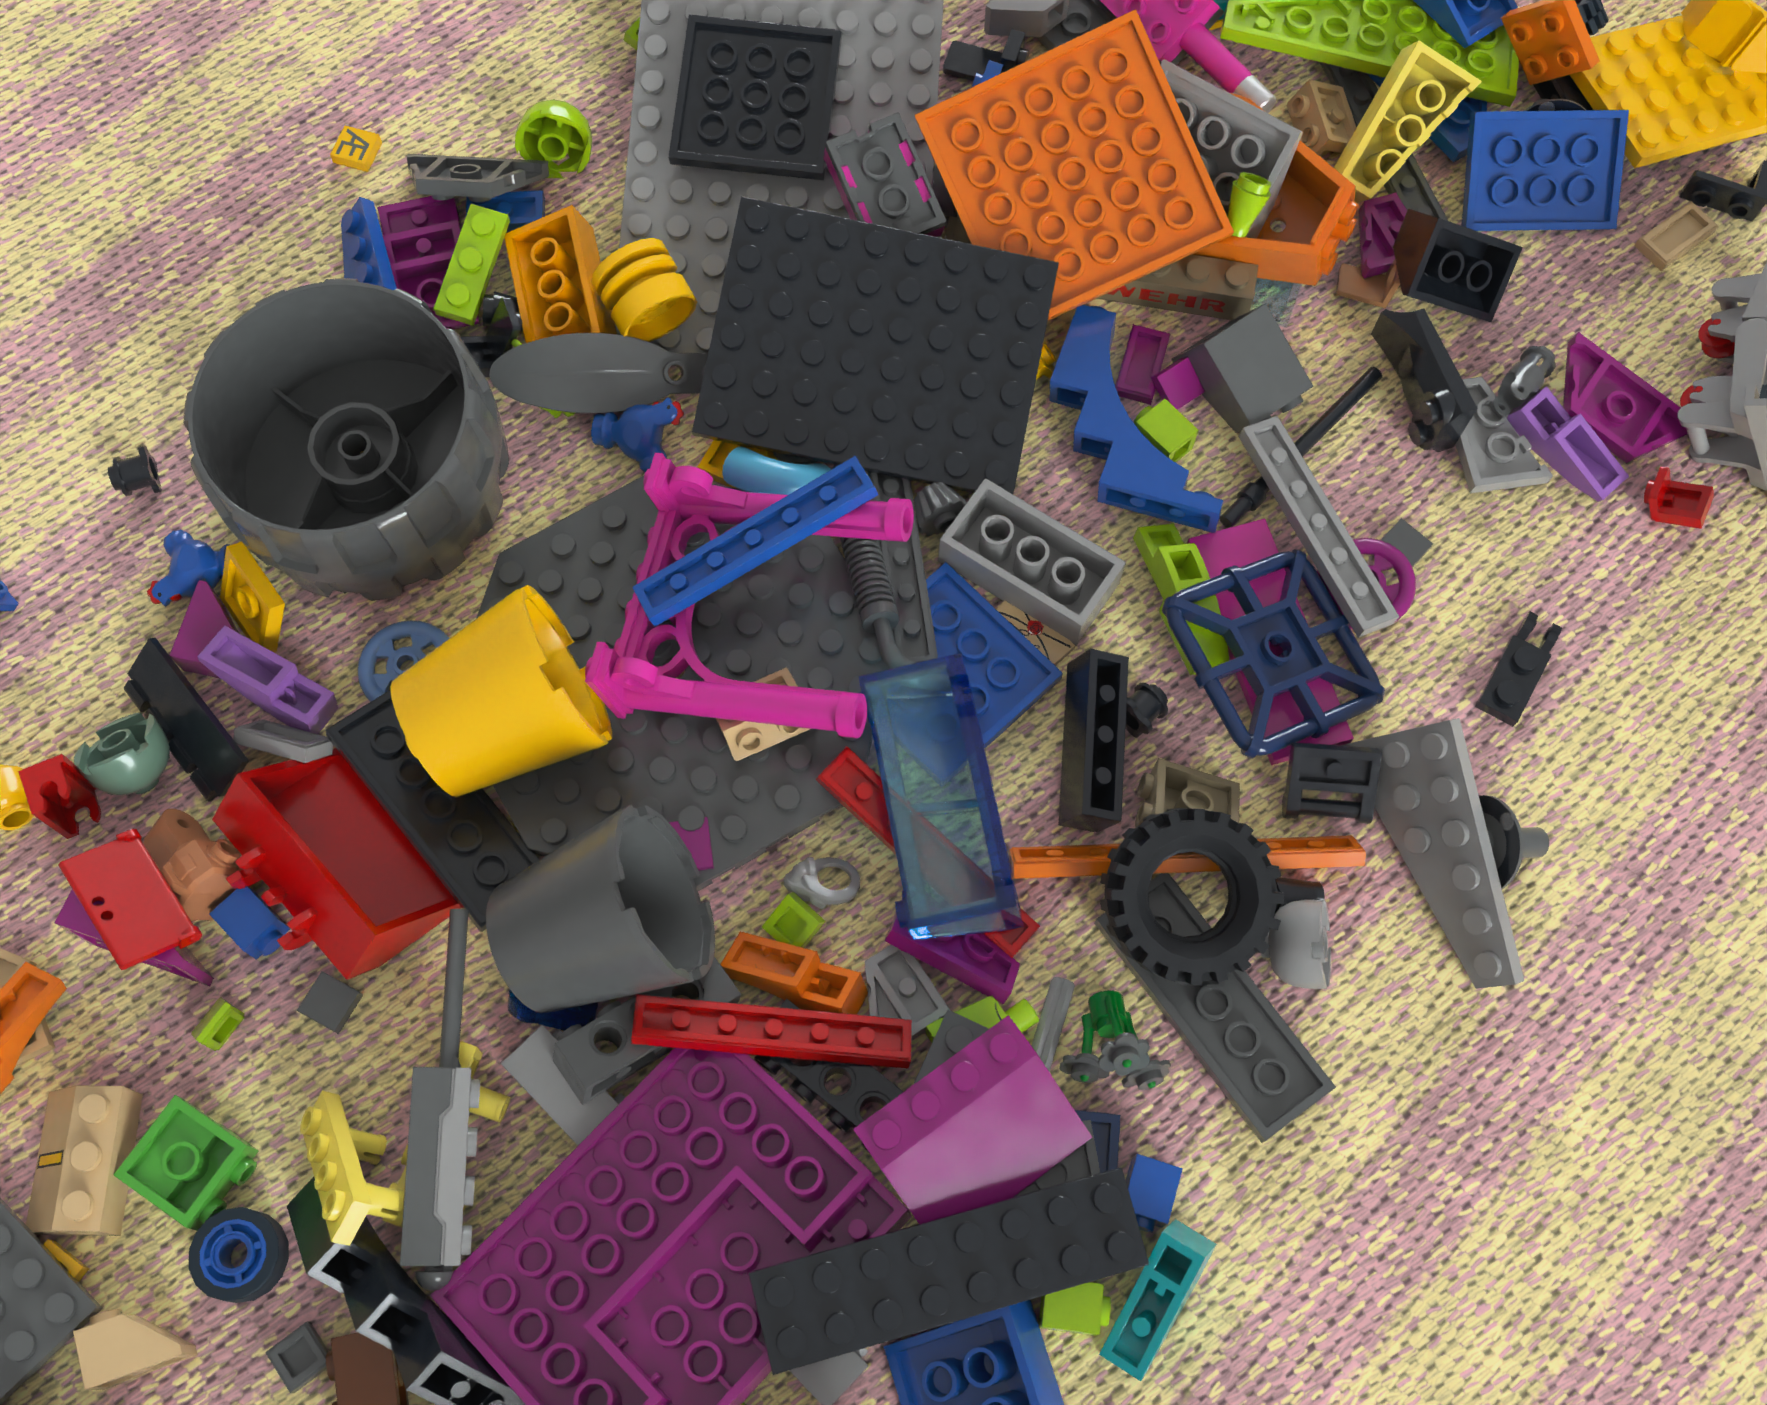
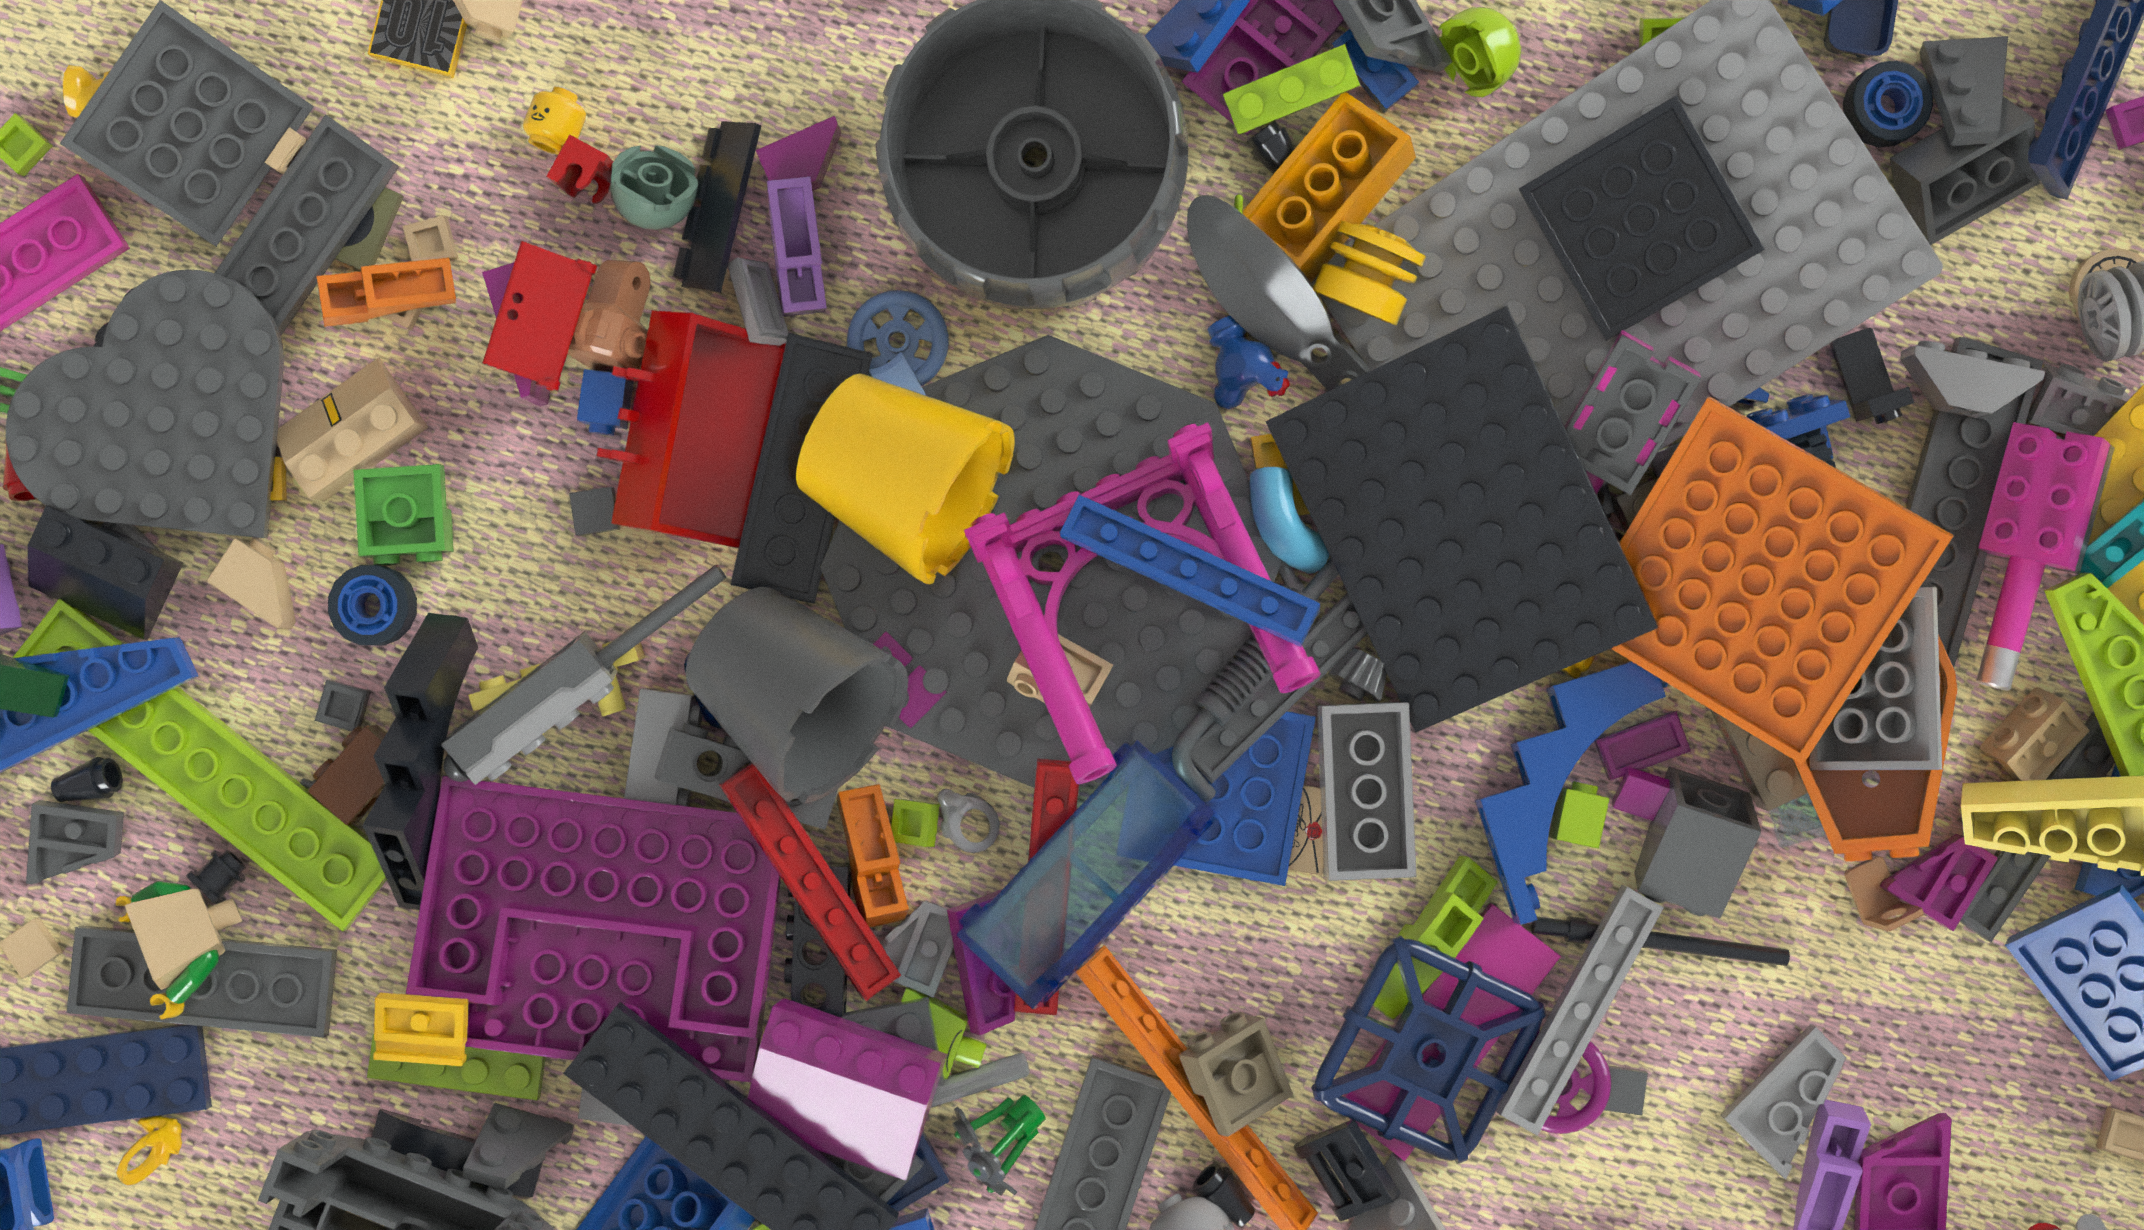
camera: 55 degrees right, 20 degrees up
(189, 563) = (846, 94): blue animal -> none
(218, 1024) = (515, 438): lime slope -> none
(251, 597) = (849, 175): yellow tile -> none
(335, 1158) = (485, 619): light yellow plate -> none
(503, 329) = (1224, 168): black bracket -> none
(1093, 741) = (1240, 955): black brick -> none
(1144, 707) = (1302, 972): black brick -> none
(1246, 201) = (1844, 756): lime cone -> none
(1247, 913) = (1128, 1175): black tyre -> none
(1428, 378) = (1800, 1014): black slope -> none
(1453, 265) = (1942, 964): black slope -> none
(1524, 379) = (1868, 1097): dark grey piece -> none

